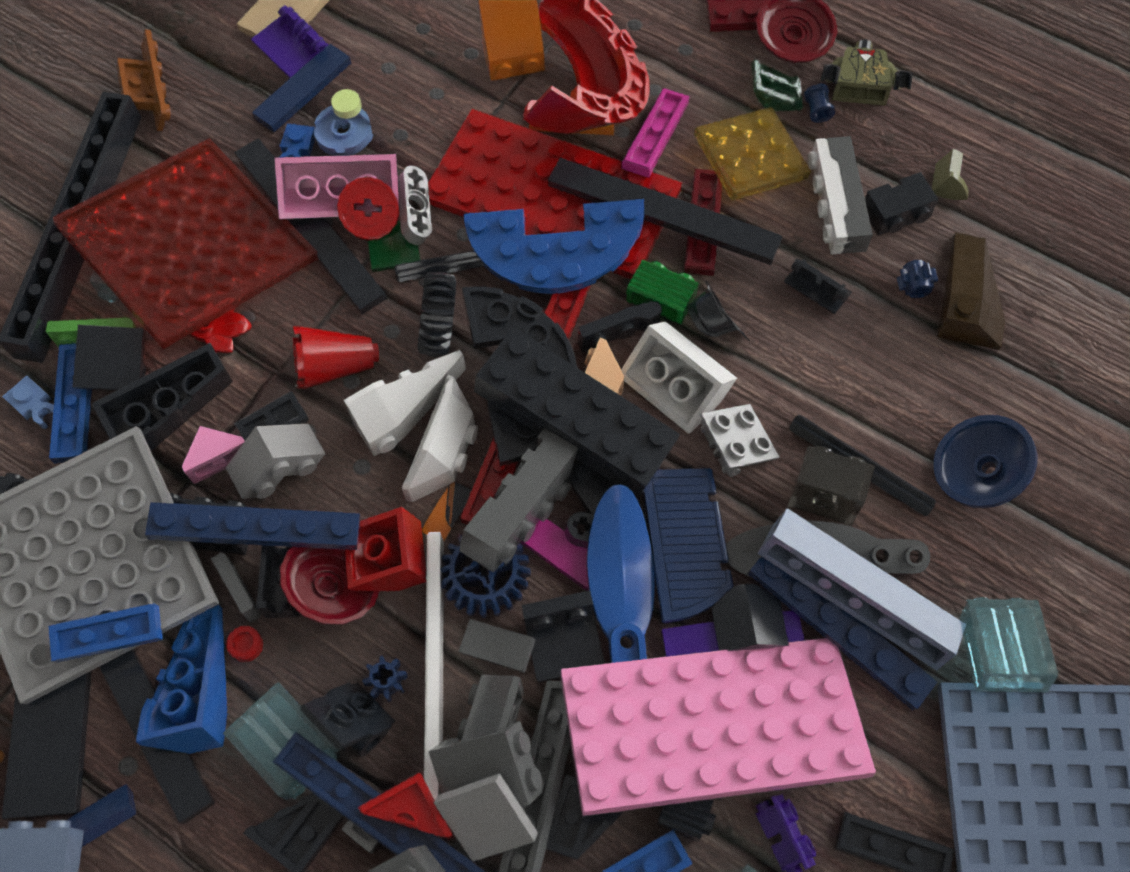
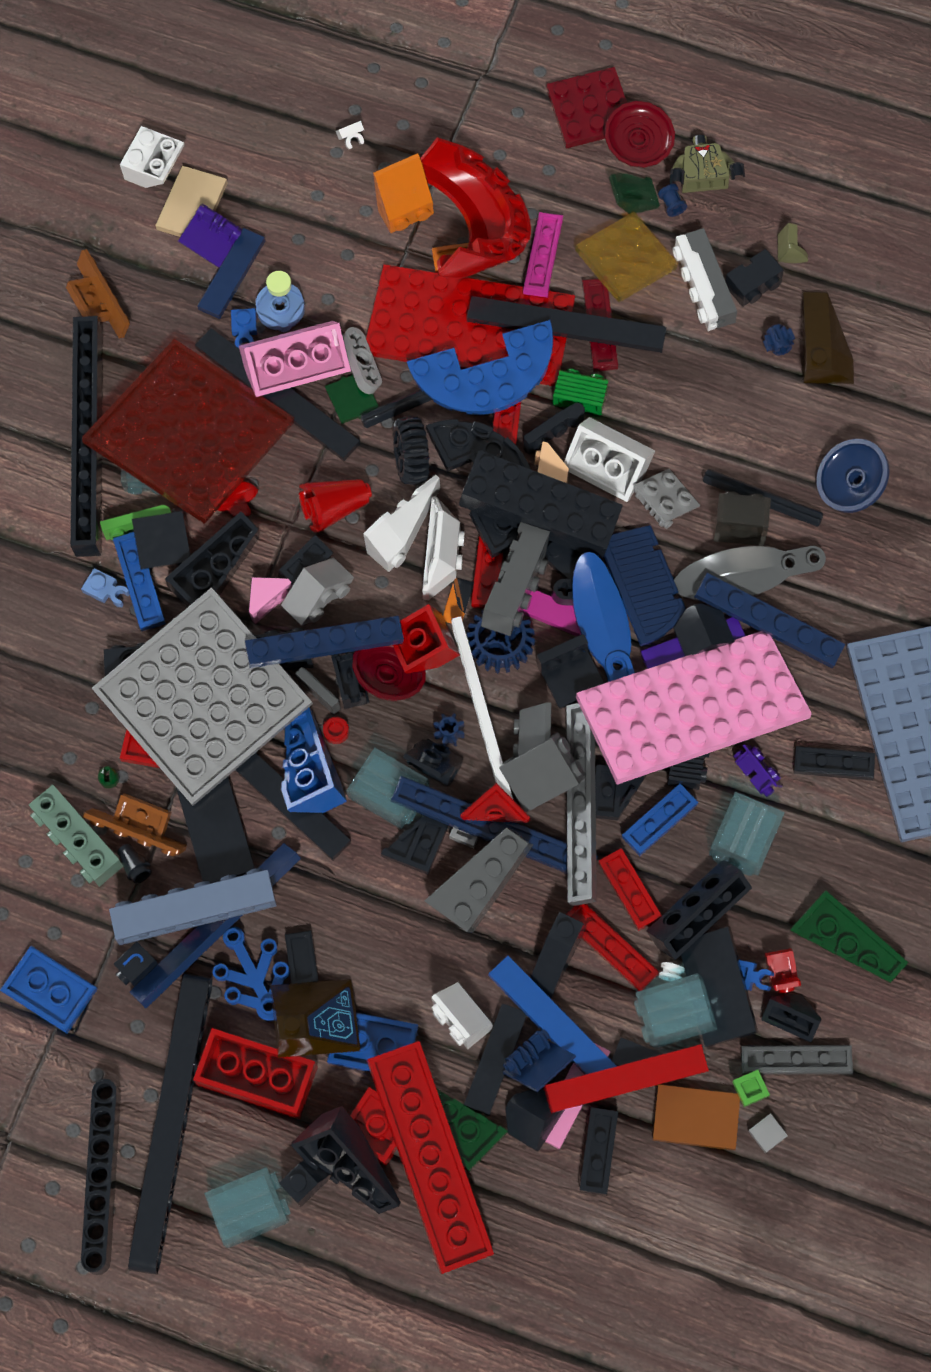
camera: 10 degrees left, 5 degrees up
(105, 633) = (241, 740): blue plate -> none
(357, 194) = (335, 361): red piece -> none
(486, 818) = (551, 800): light grey tile -> none
(497, 645) = (523, 689): dark grey tile -> none
(710, 315) = (624, 405): black piece -> none
(817, 286) = (702, 361): black hinge -> none
(863, 590) = (778, 589): brick -> none
(1008, 645) = (889, 606): clear light blue brick -> none

